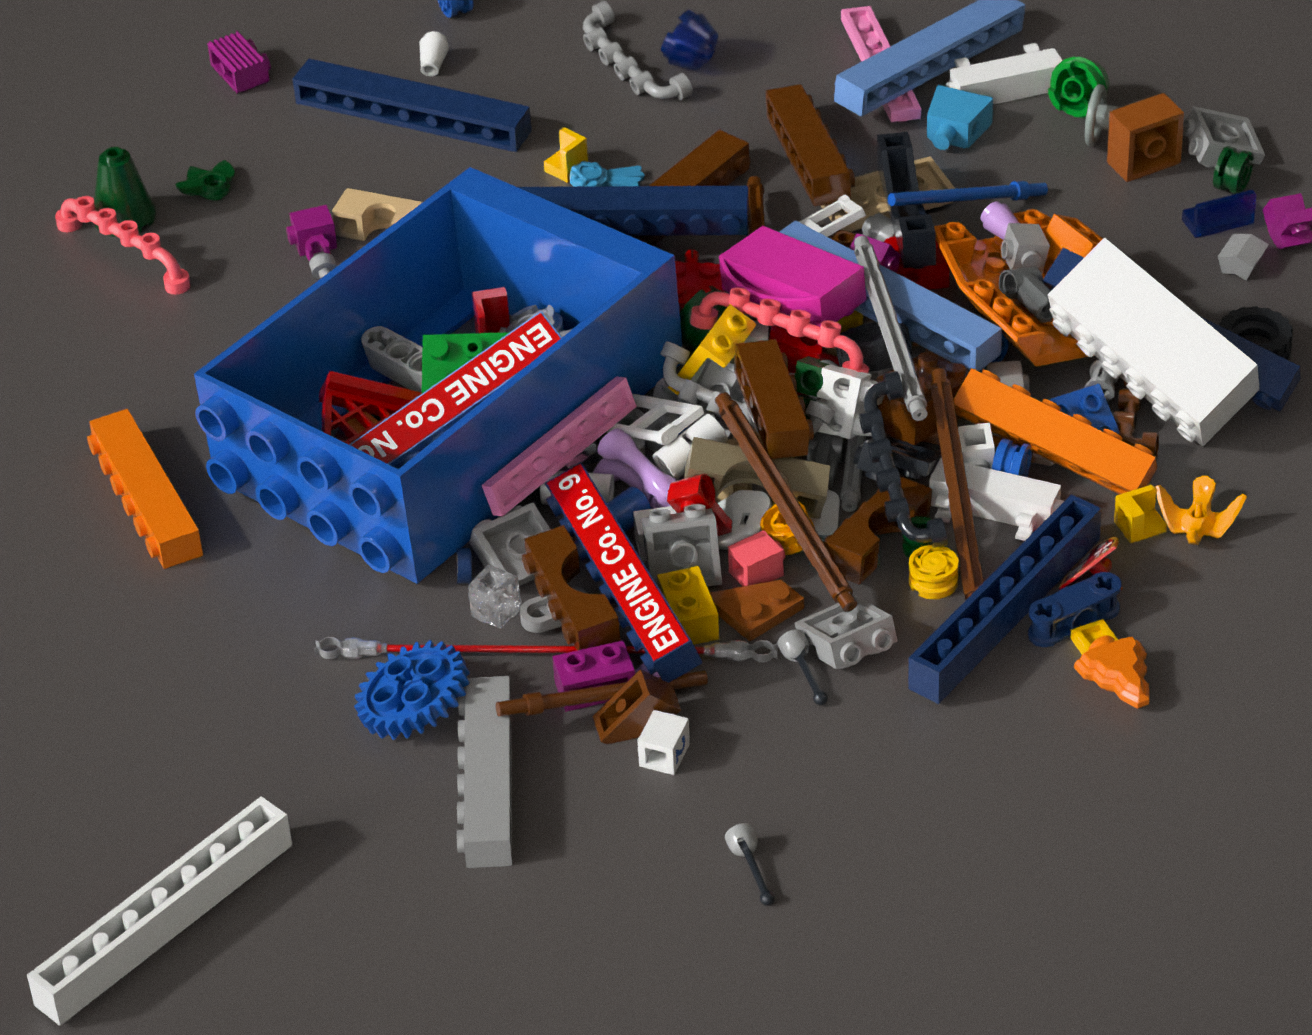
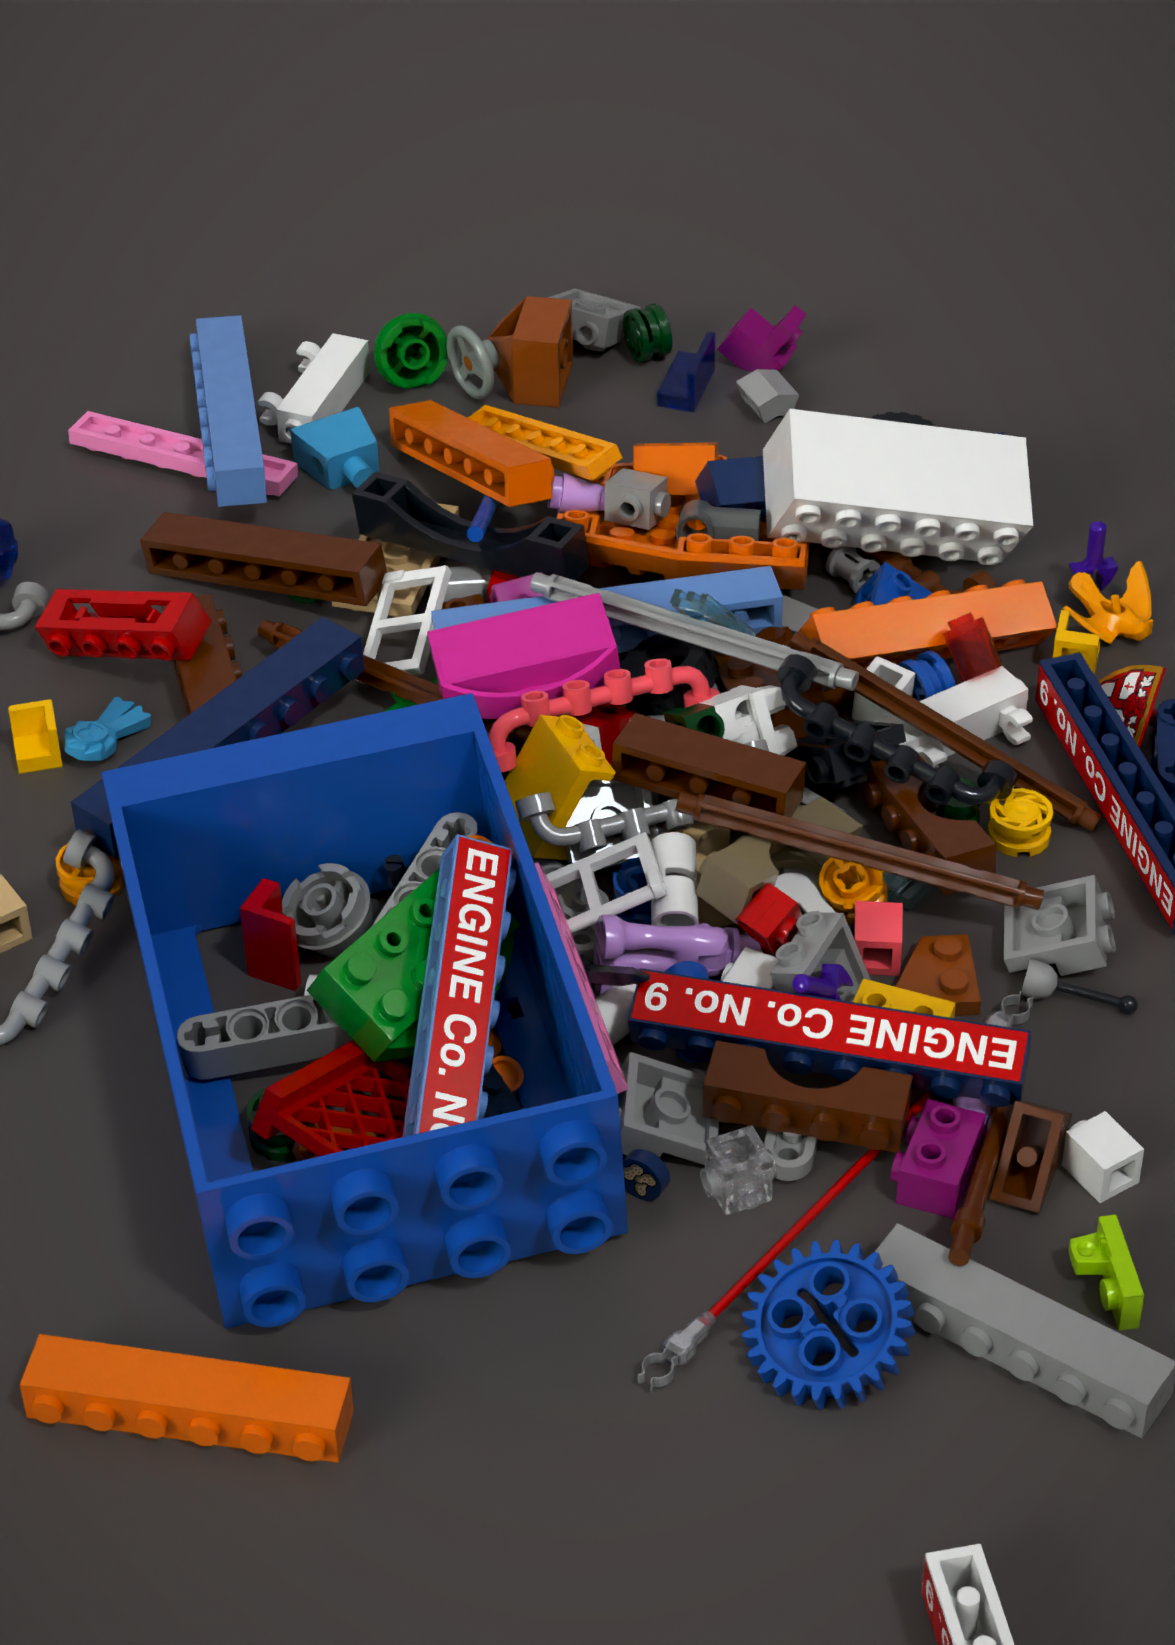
camera: 55 degrees left, 0 degrees up
(578, 785) = (1109, 1256): none -> lime hinge
(654, 547) = (832, 978): none -> dark purple bar
(688, 141) = (123, 624): none -> red brick
(913, 328) = (708, 609): none -> clear light blue tile
(991, 161) = (471, 453): none -> orange brick
(1037, 183) = (568, 449): none -> light orange plate
(1048, 458) = (971, 646): none -> clear red brick
(1228, 478) = (1094, 559): none -> dark purple bar

